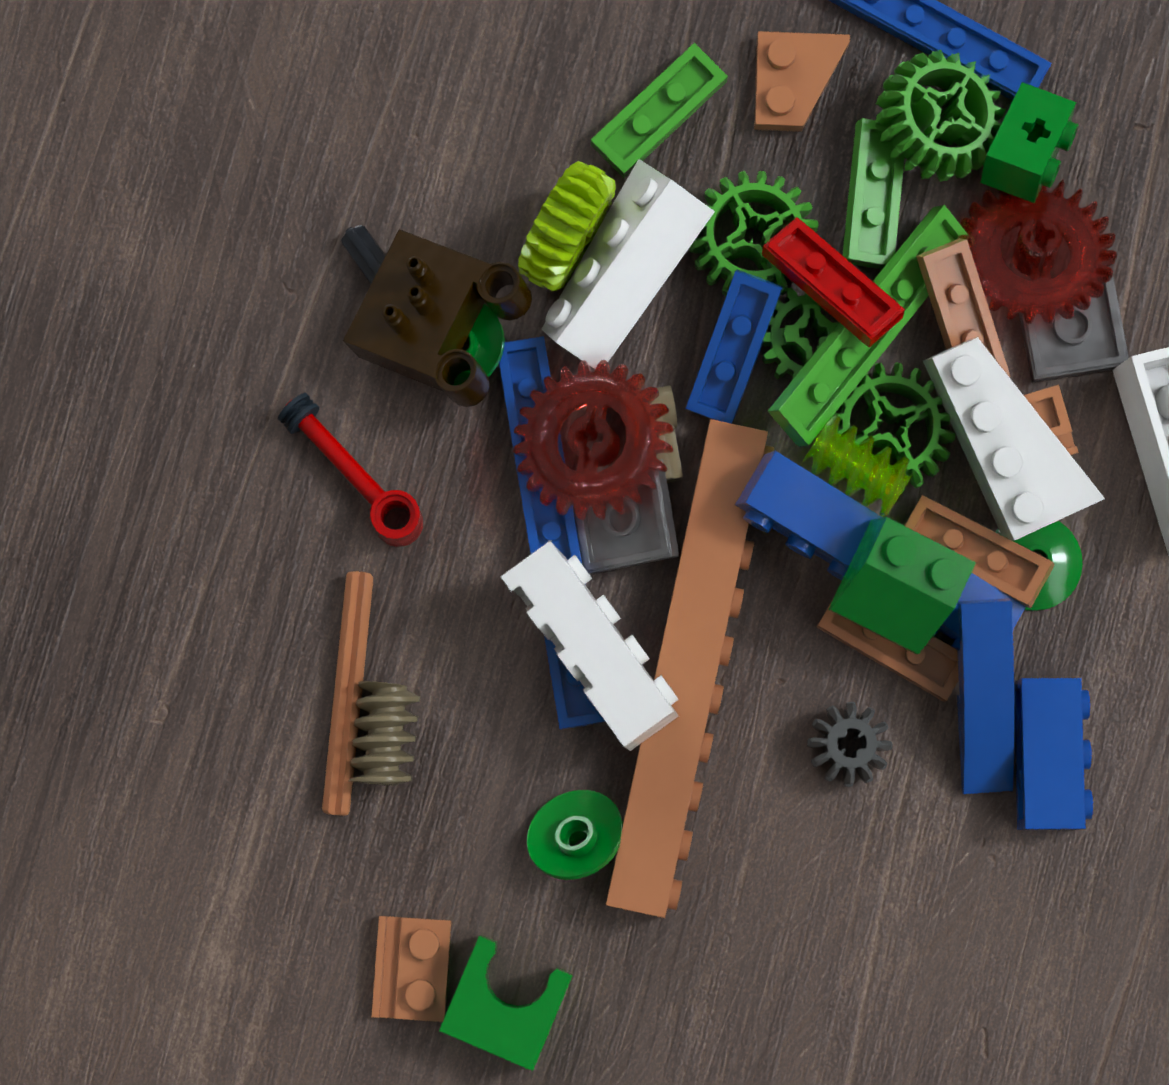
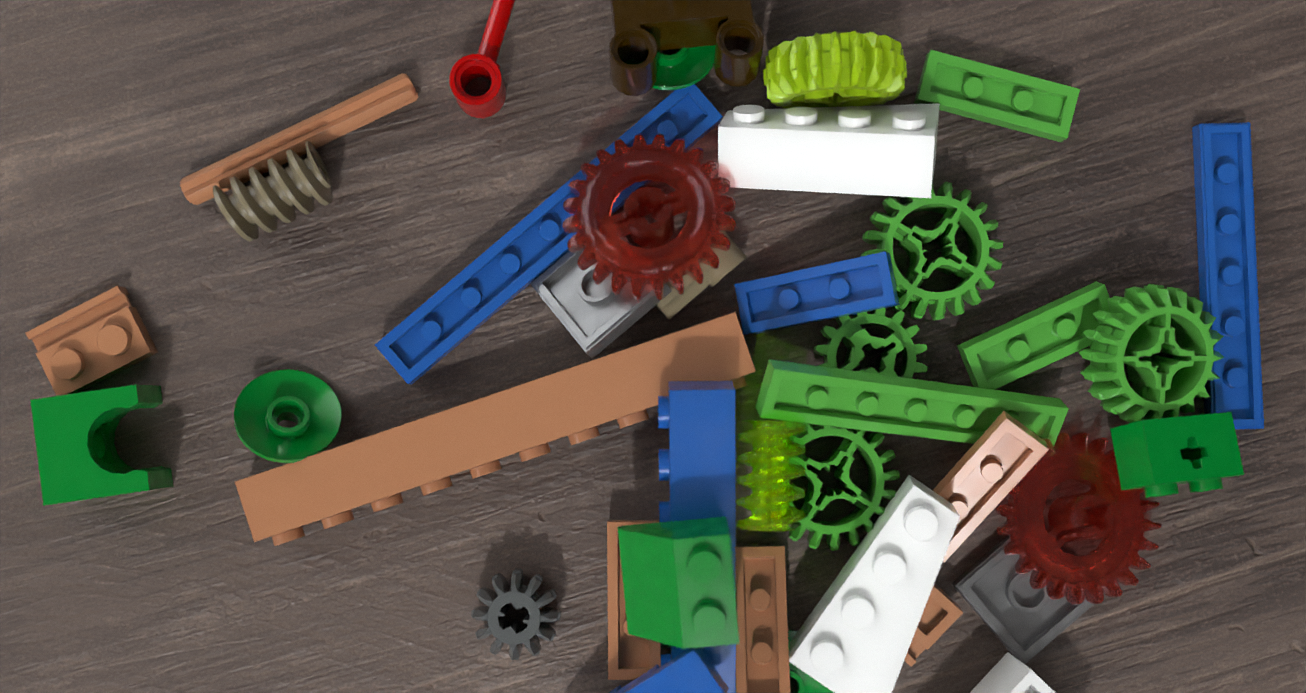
camera: 60 degrees right, 5 degrees up
(592, 645) = (456, 326): white wedge -> none
(793, 76) = (1104, 199): nougat wing -> none
(833, 282) = (930, 348): red tile -> none

